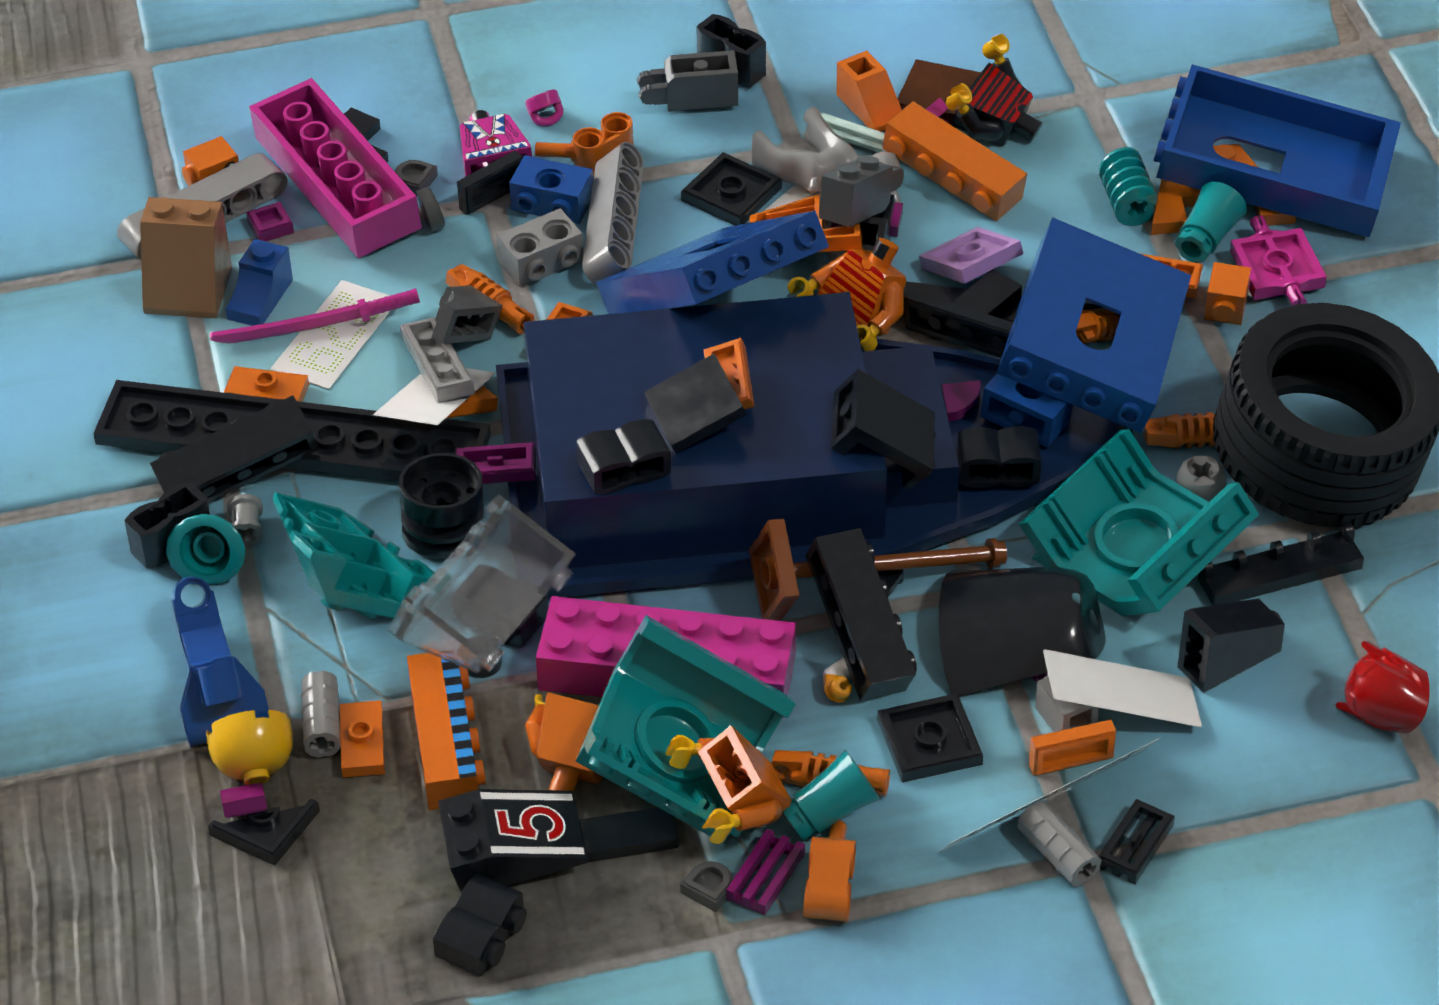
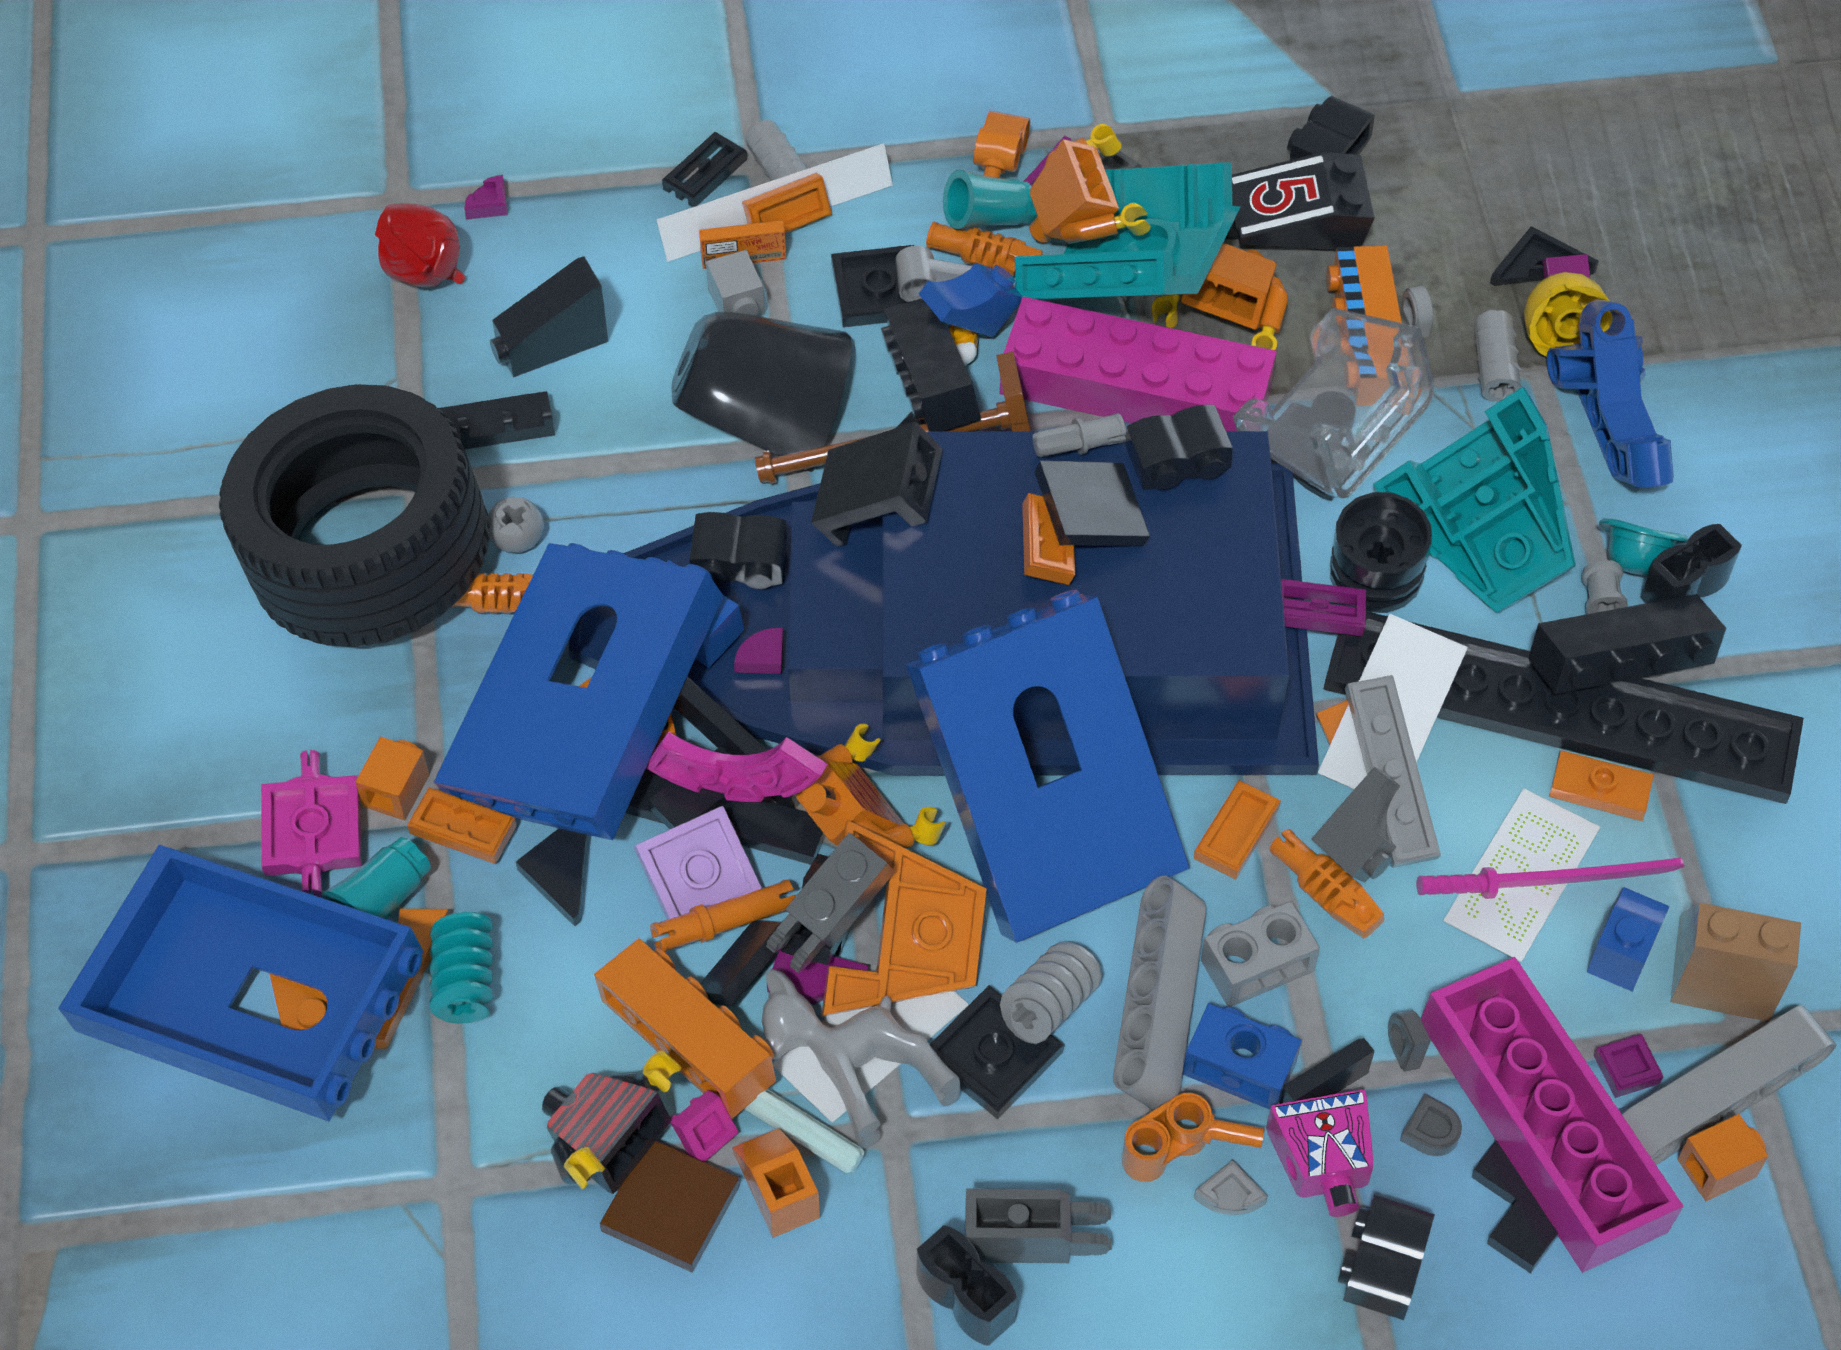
camera: 175 degrees left, 10 degrees up
(362, 739) = (1453, 339): orange plate -> none
(397, 753) = (1417, 309): none -> light grey tile
(449, 98) = (1387, 1257): none -> black brick
(543, 102) = (1250, 1232): dark pink tile -> none
(555, 131) = (1230, 1192): none -> light grey tile
(692, 197) = (1049, 991): none -> light grey piece
(711, 461) = (1080, 435): none -> light grey axle
(832, 677) = (975, 300): none -> blue arch
(884, 715) = (917, 265): none -> light grey piece
(924, 210) = (740, 964): none -> black tile
(931, 264) = (741, 778): none -> dark pink tile
(956, 221) = (705, 922): none -> orange pin
(1037, 787) = (794, 203): none -> orange tile
(1121, 688) = (679, 283): white sticker -> none
(1133, 527) = (601, 452): teal panel -> none
(1345, 786) = (487, 200): none -> magenta tile

